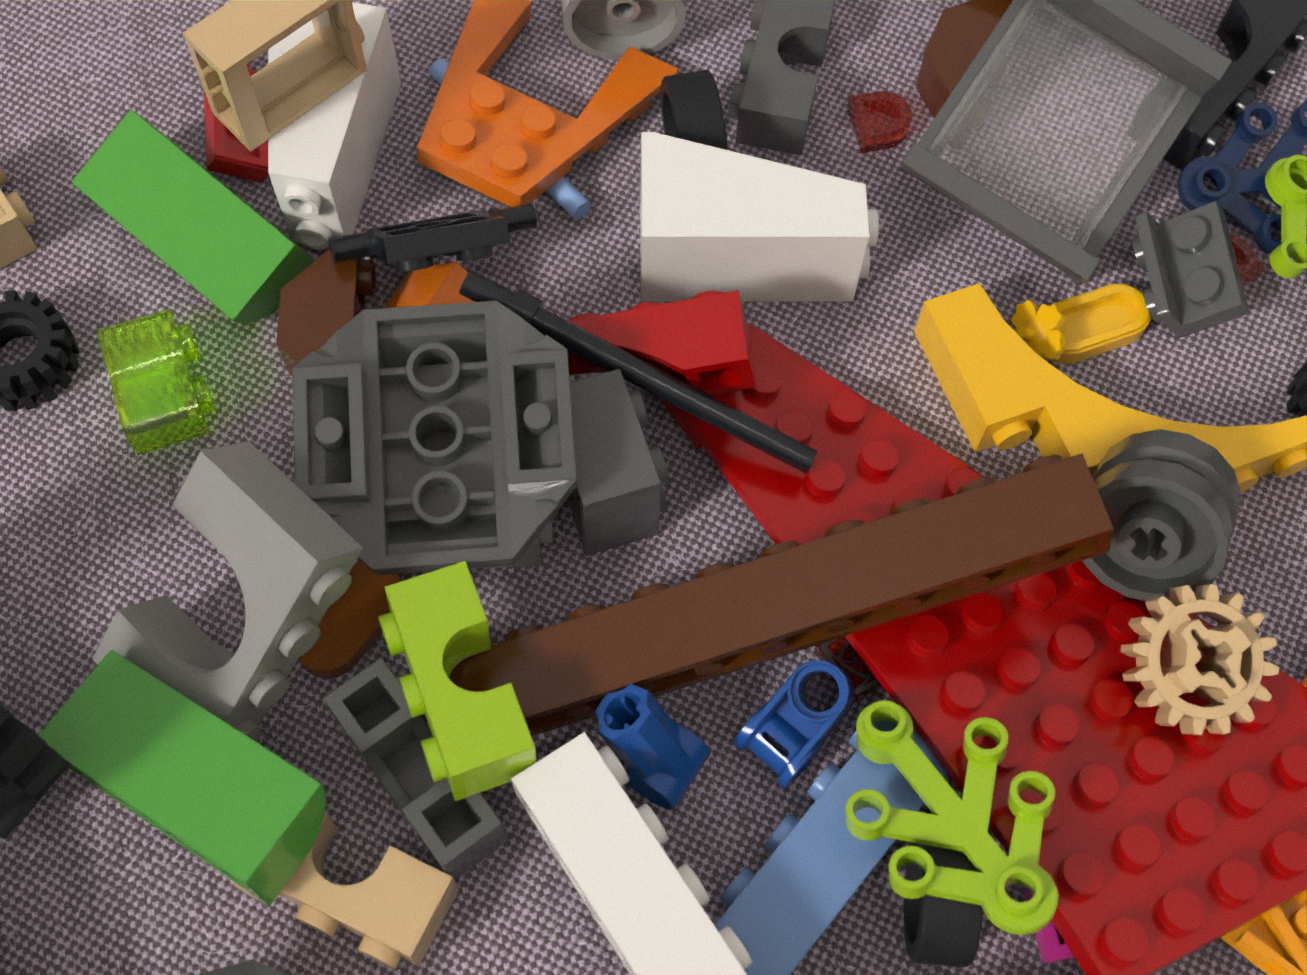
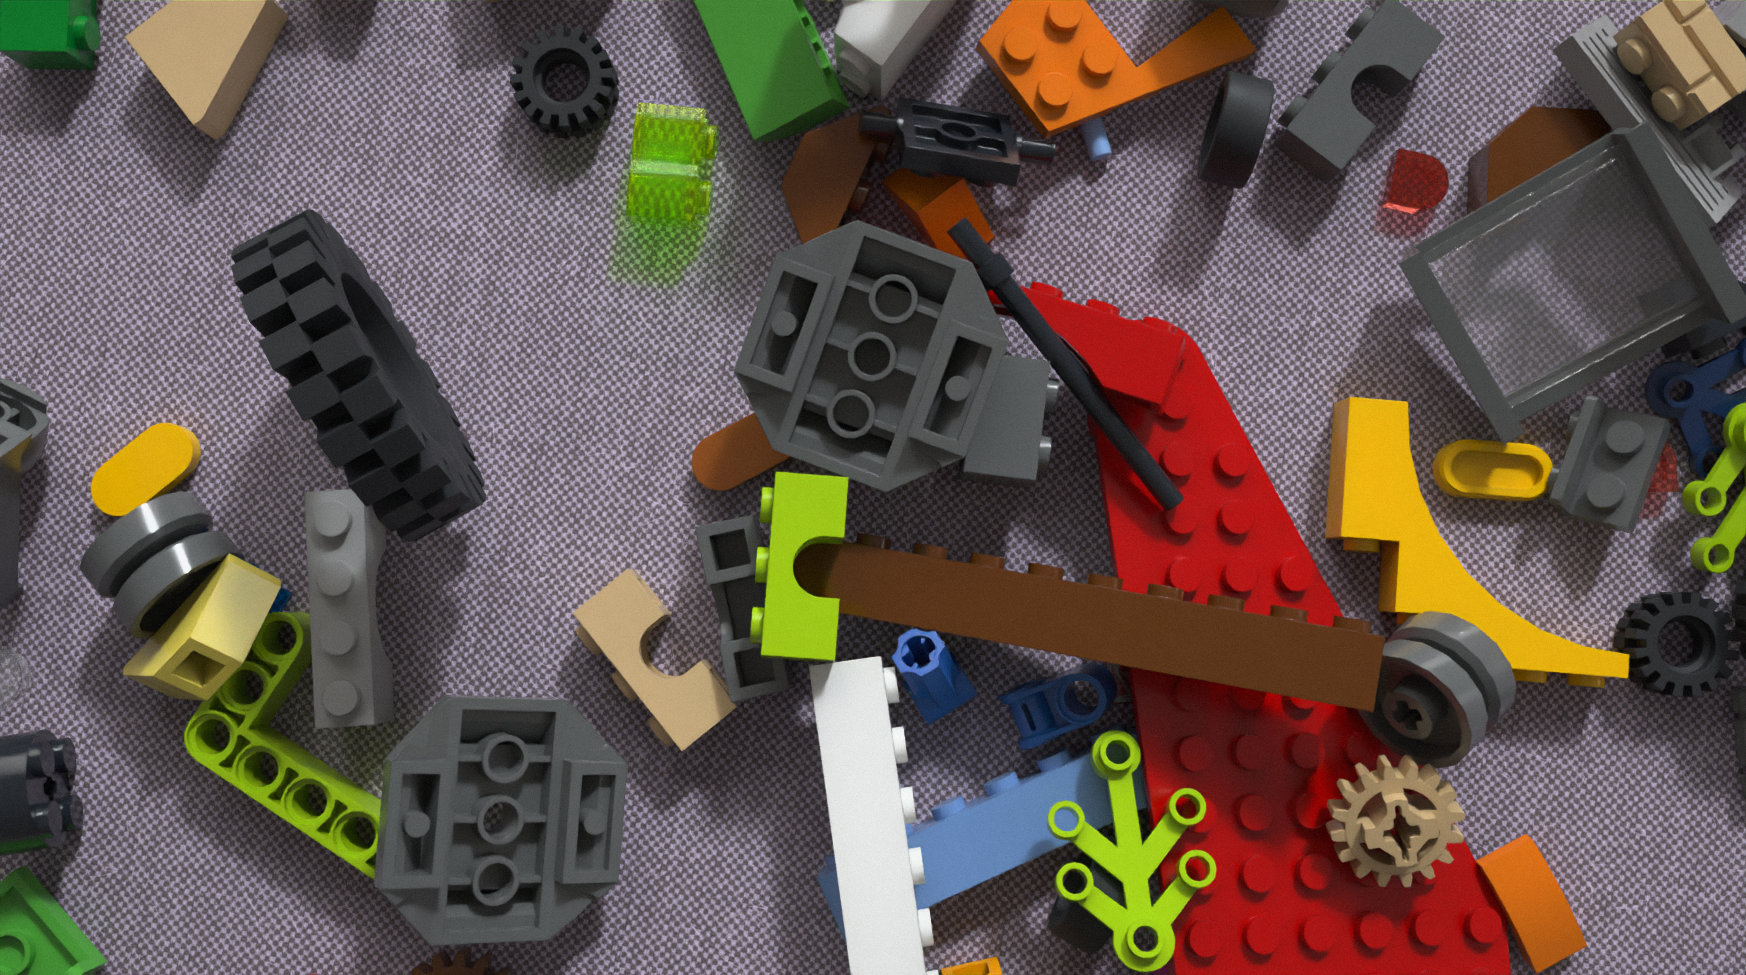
camera: 30 degrees right, 20 degrees up
(190, 775) = (568, 541): bright green brick -> none
(289, 569) = (705, 417): light grey arch -> none
(747, 226) = (1230, 253): white slope -> none
(1041, 328) = (1436, 460): yellow plant -> none

